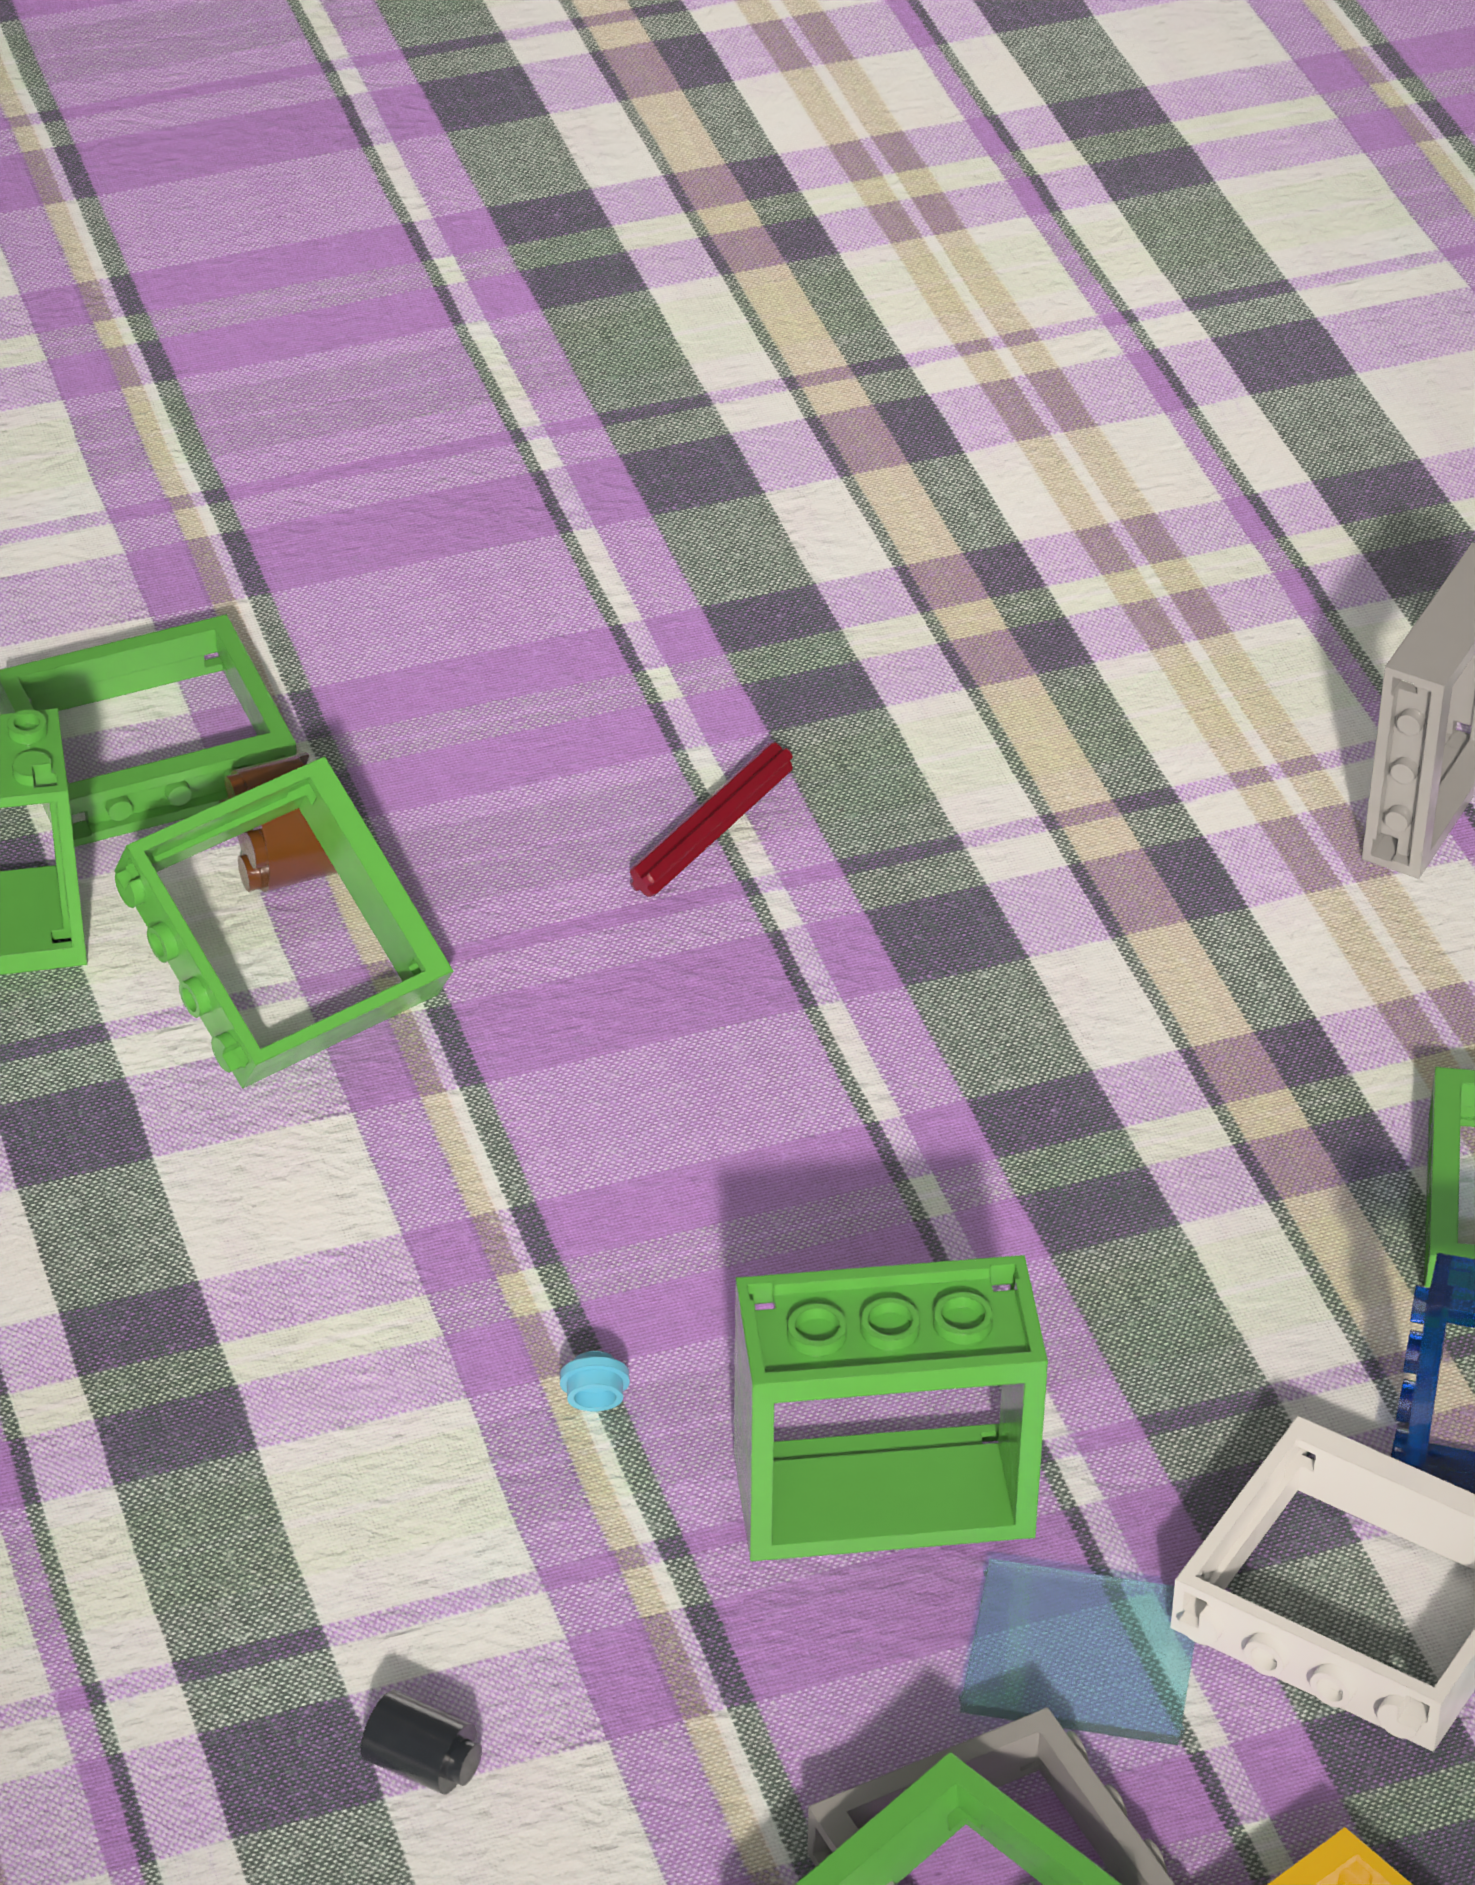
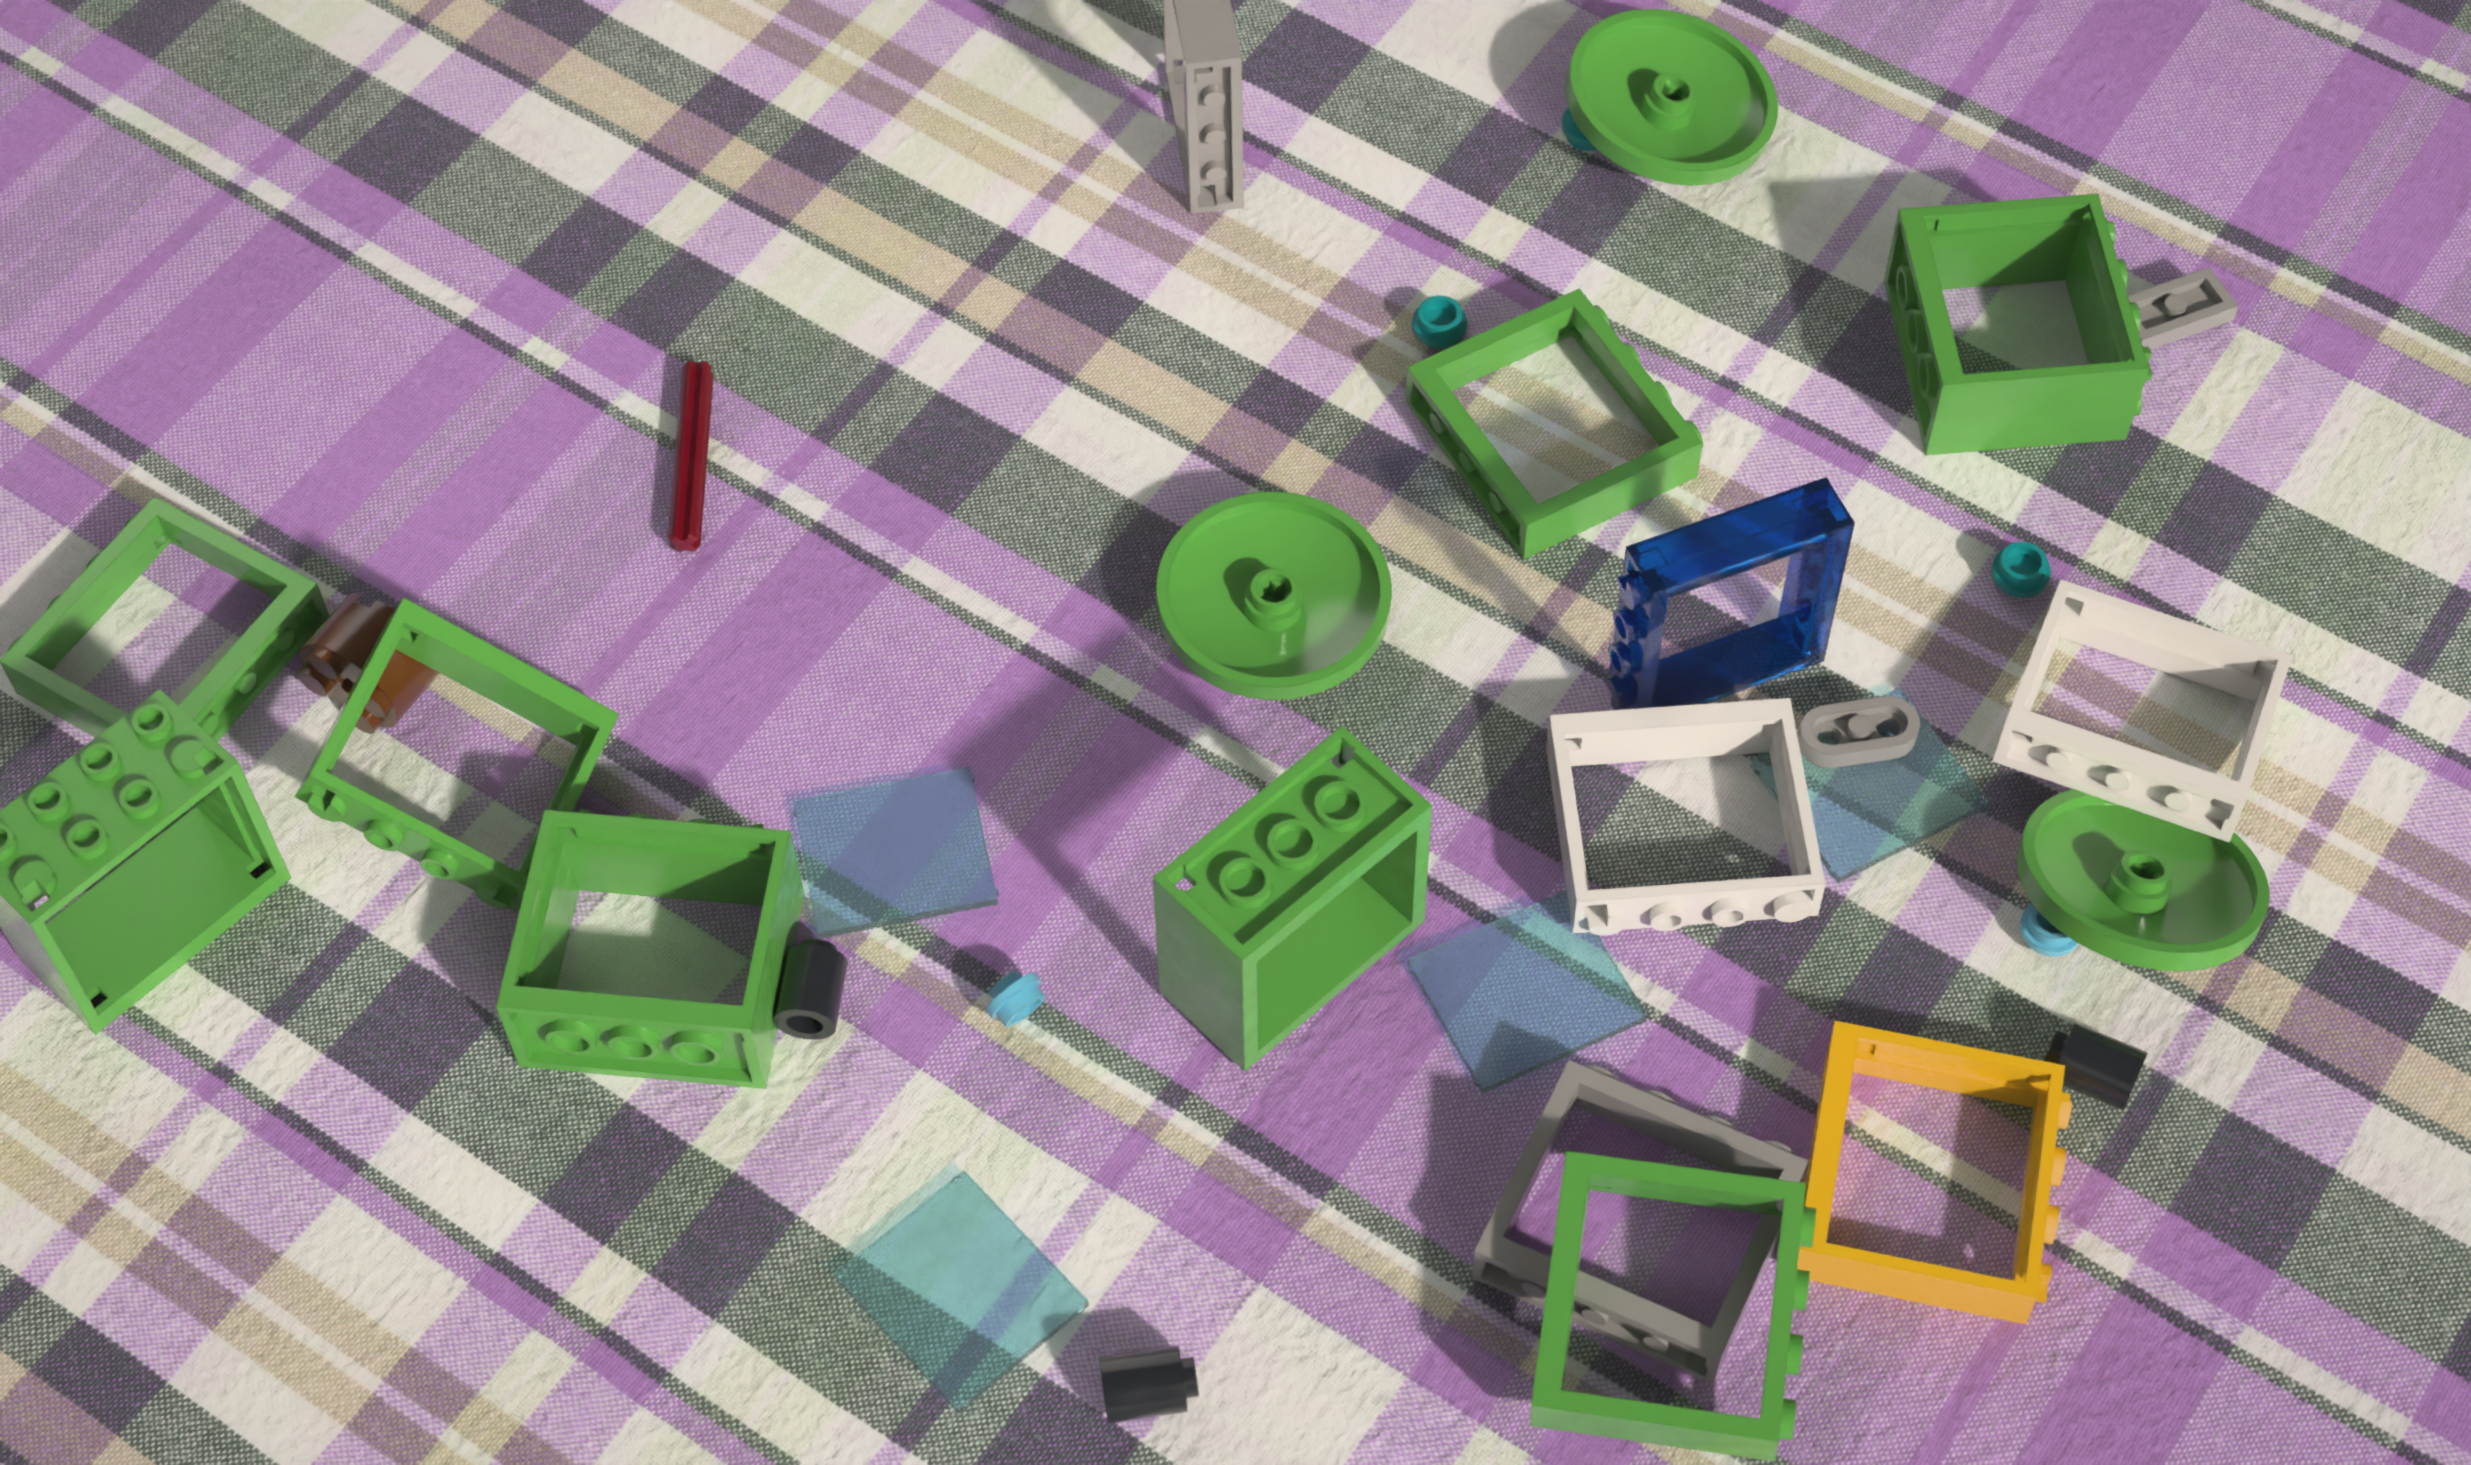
camera: 35 degrees left, 15 degrees up
(271, 1241) = (645, 1033): none -> bright green window
(339, 1586) = (961, 1291): none -> clear light blue piece
(422, 1274) = (811, 990): none -> black brick
(603, 1218) = (894, 852): none -> clear light blue piece
(1130, 1188) = (1273, 595): none -> bright green dish

